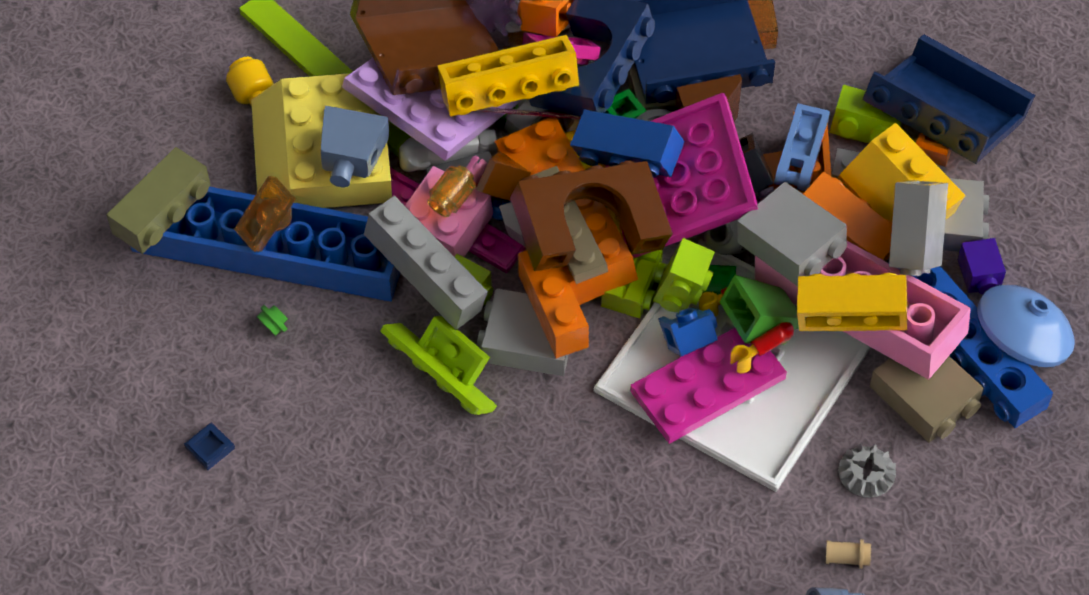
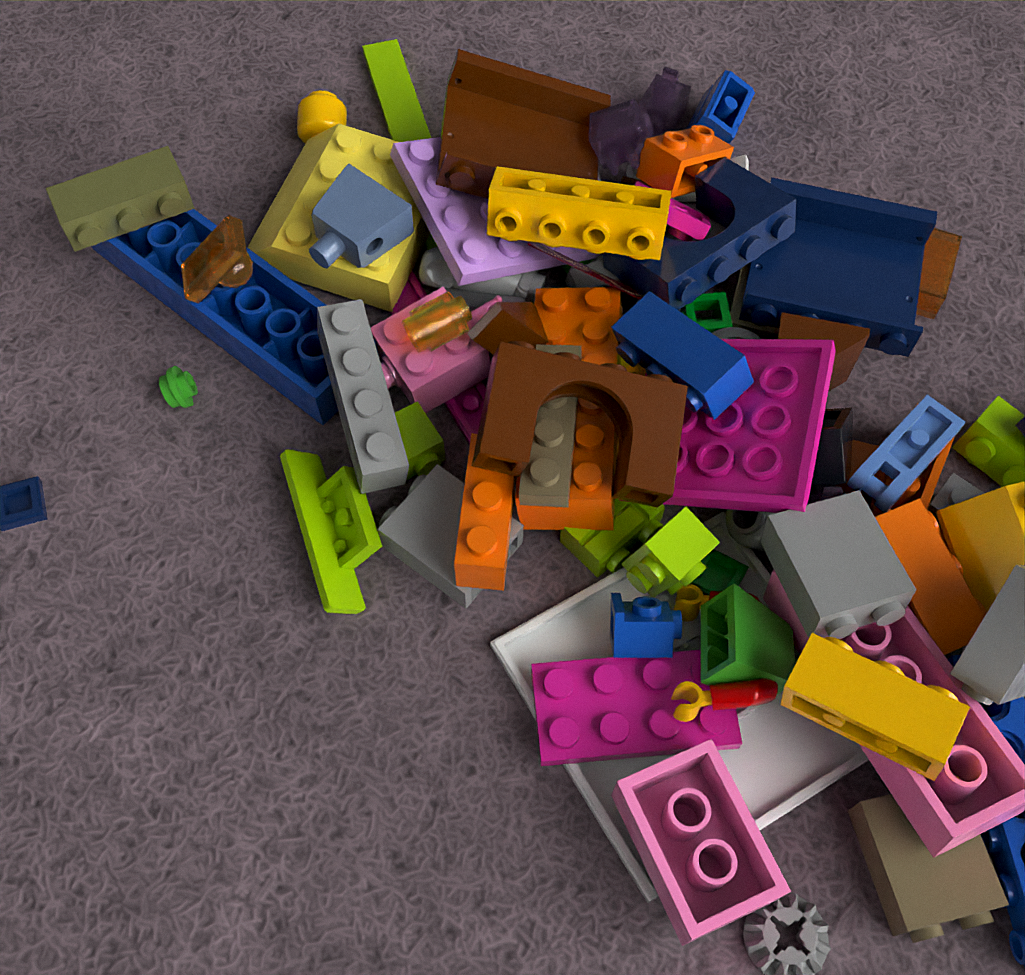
camera: 25 degrees right, 5 degrees up
(788, 434) = (698, 841): none -> bright pink brick

